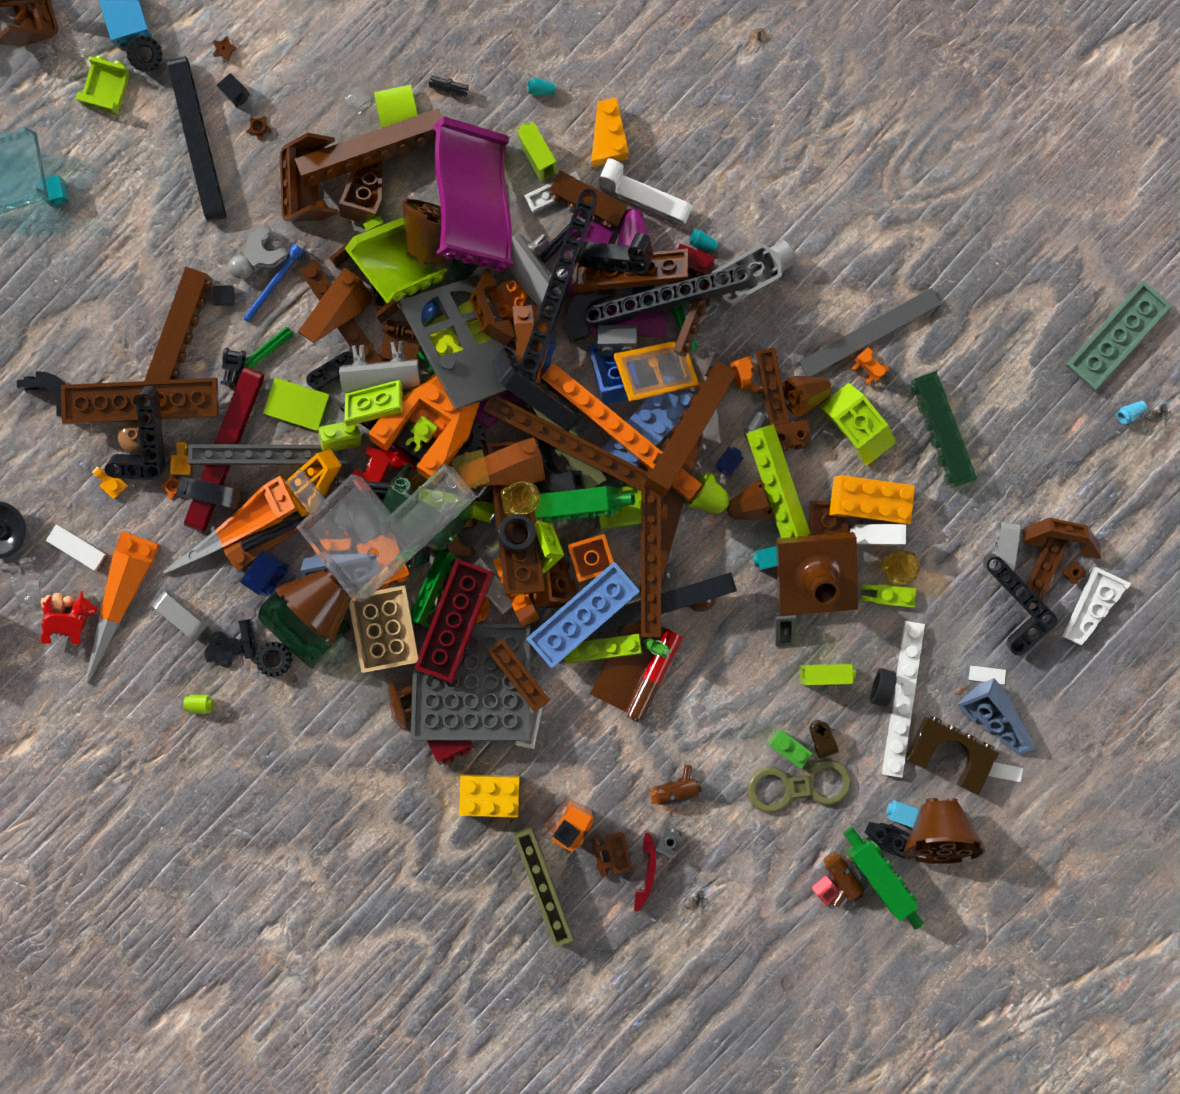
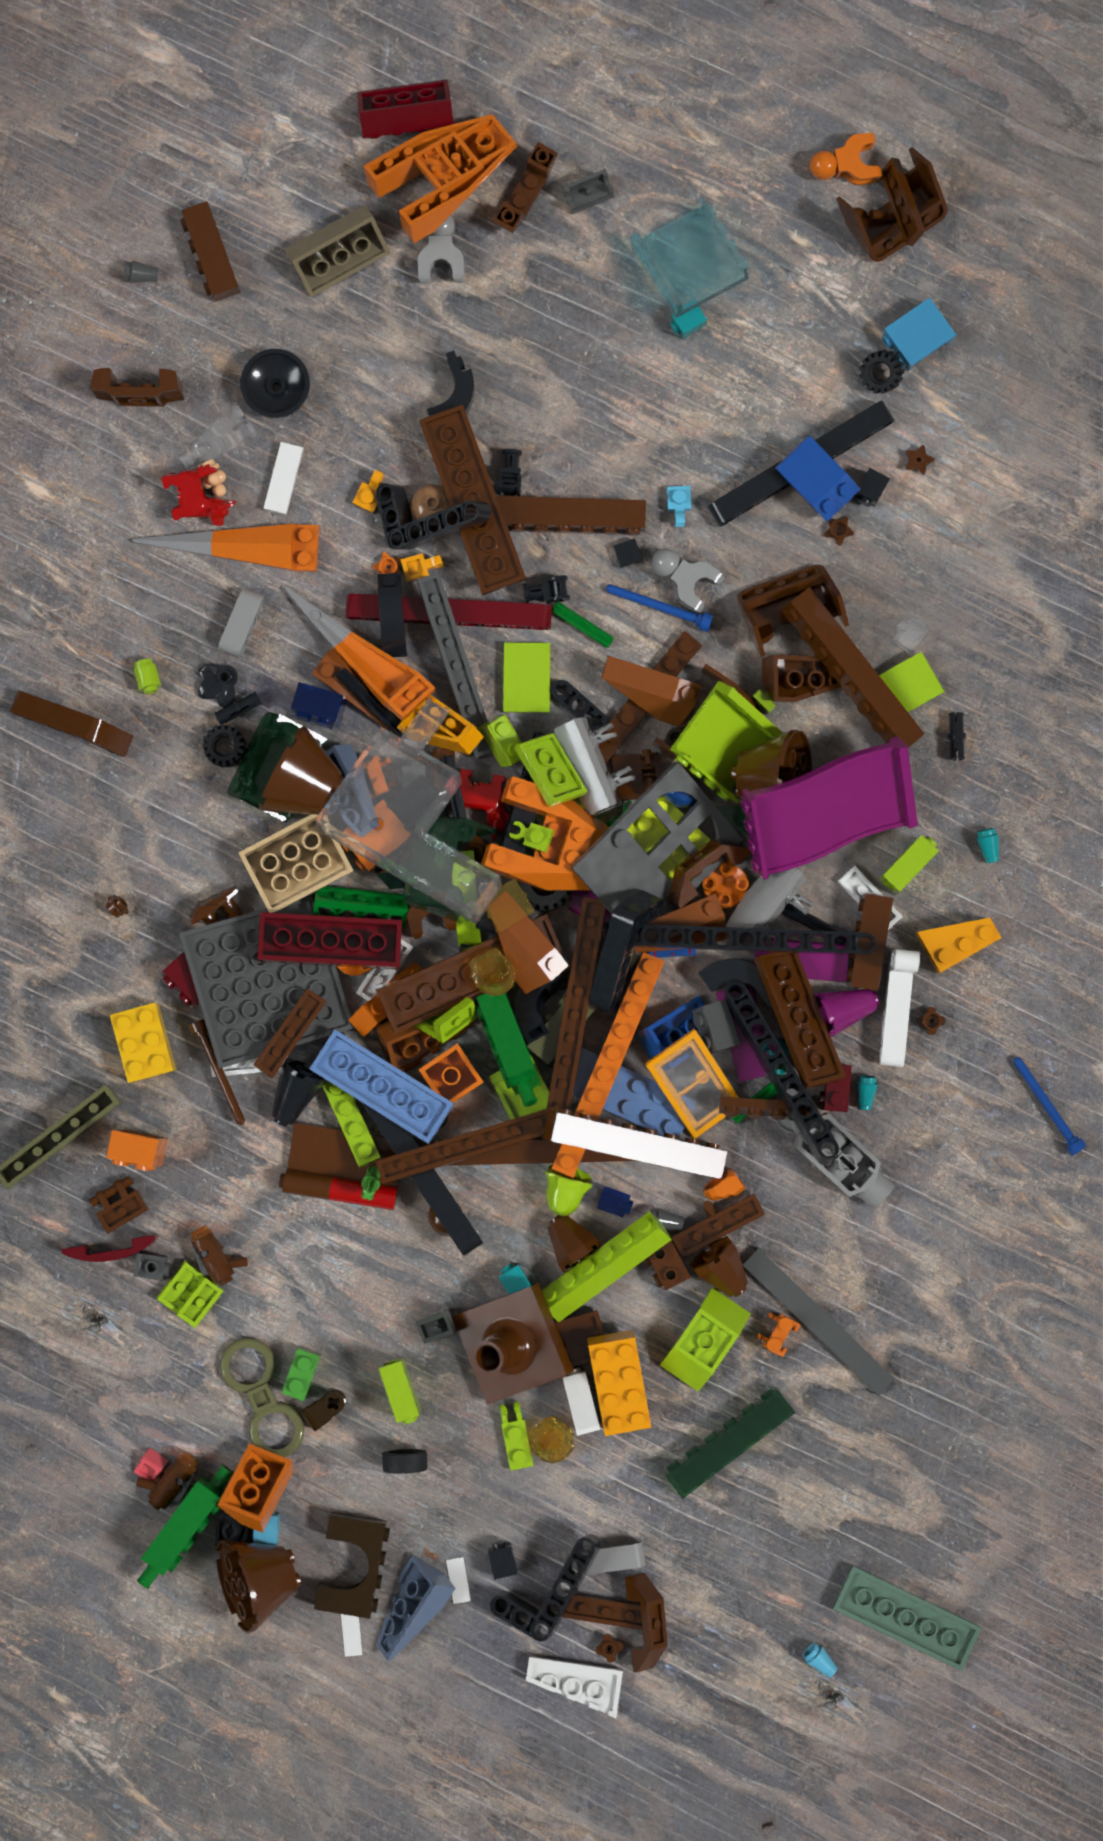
camera: 75 degrees right, 0 degrees up
(104, 85) = (830, 336): lime panel -> none
(132, 367) = (510, 476): none -> black connector
(196, 243) = (679, 501): none -> medium azure plate
(212, 127) = (817, 478): none -> blue slope
(215, 774) = (72, 722): none -> reddish brown beam
(374, 783) = (117, 906): none -> reddish brown plate
(495, 746) = (200, 1030): none -> reddish brown piece
(520, 519) = (468, 981): black tyre -> none
(565, 685) = (294, 1091): none -> black cone
(566, 833) = (125, 1144): black tile -> none
(617, 257) = (812, 1015): black beam -> none
(665, 168) = (937, 1020): none -> reddish brown plate
(700, 818) = (189, 1294): none -> lime slope
(792, 94) = (1073, 1142): none -> blue piece
(869, 811) = (256, 1487): none -> orange slope
(903, 699) = (399, 1489): white plate -> none
(982, 634) = (502, 1560): none -> black brick

